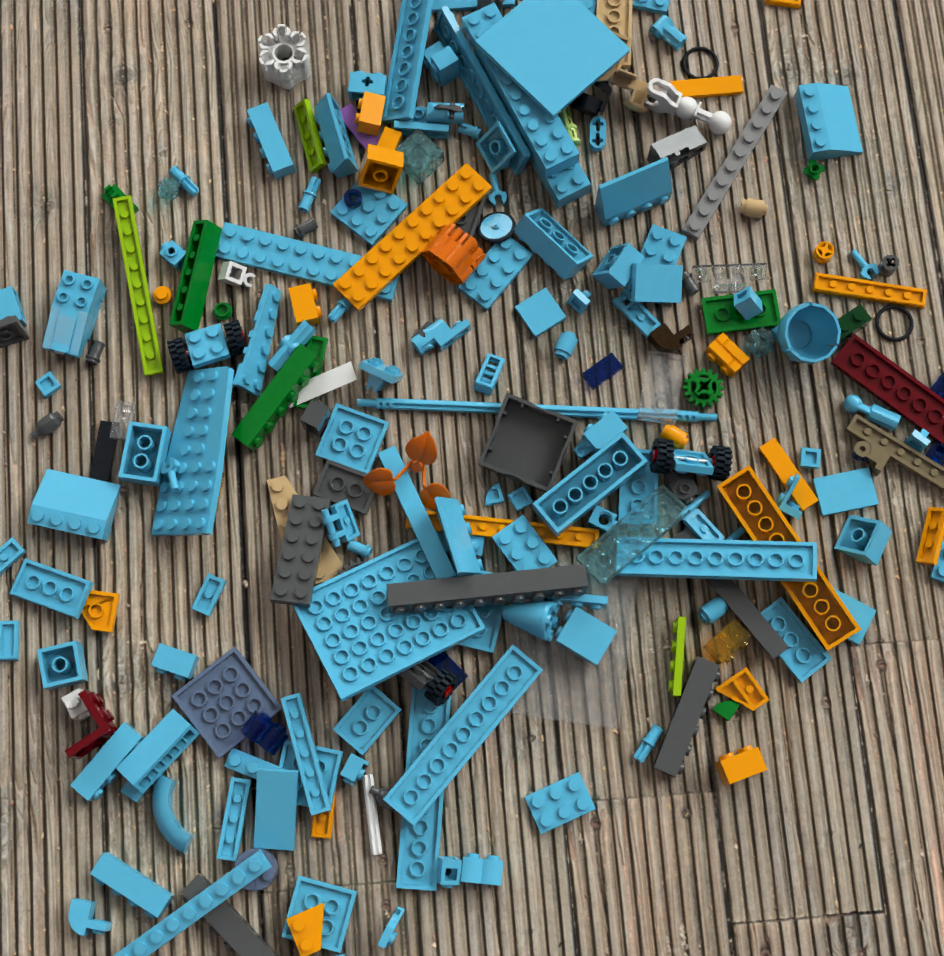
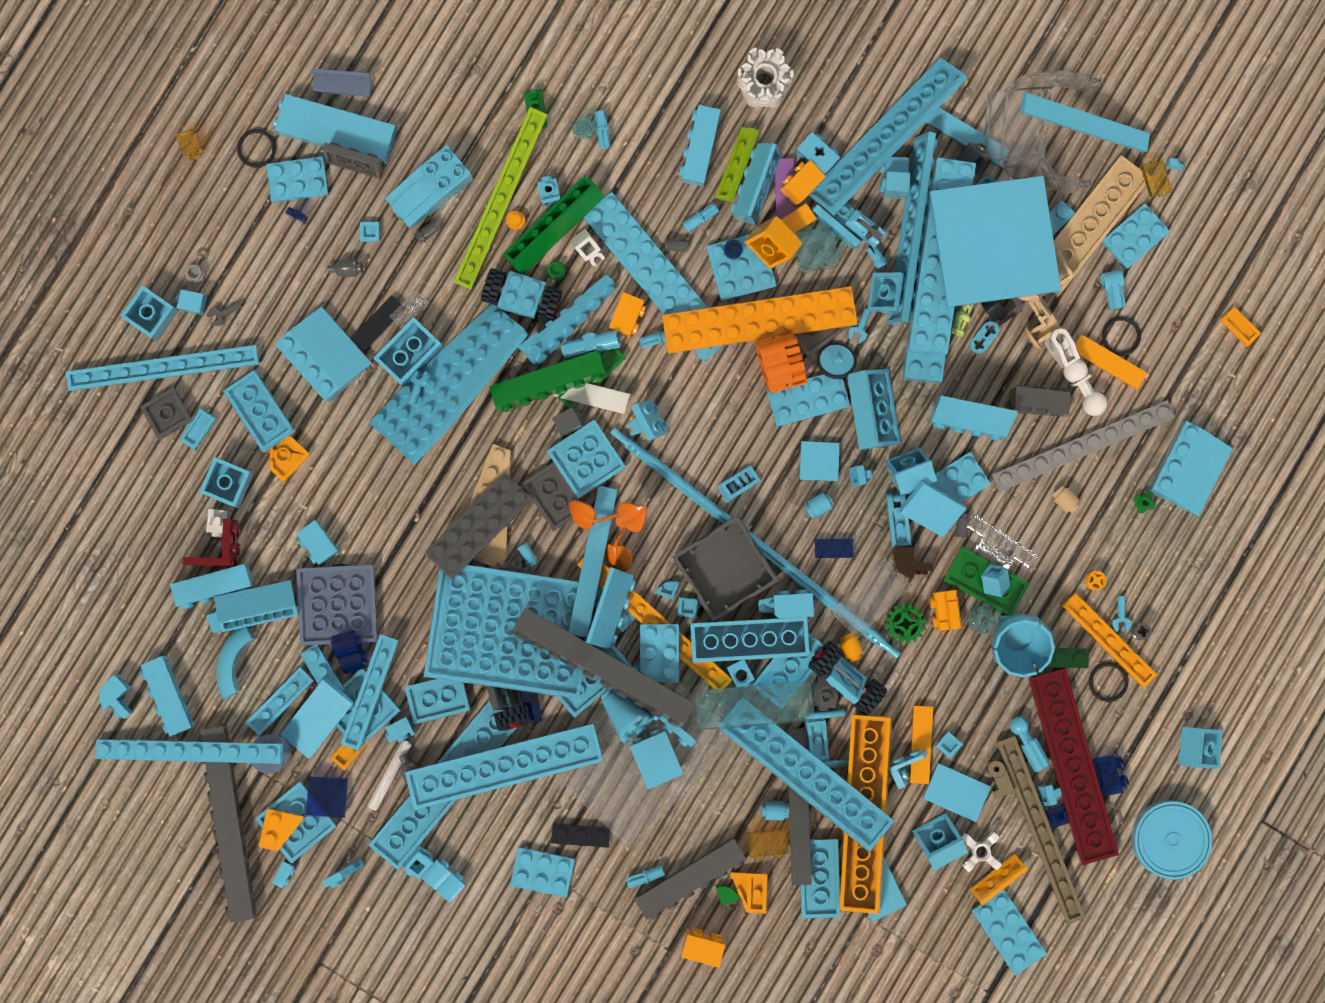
camera: 30 degrees right, 10 degrees up
(209, 594) = (381, 506): medium azure plate -> none
(331, 872) = (326, 797): none -> clear blue tile
(344, 521) = (530, 527): medium azure plate -> none
(439, 335) = (720, 419): medium azure plate -> none
(569, 748) = (580, 835): none -> black plate
(676, 664) = (713, 832): lime plate -> none
(900, 539) = (970, 863): none -> white pin

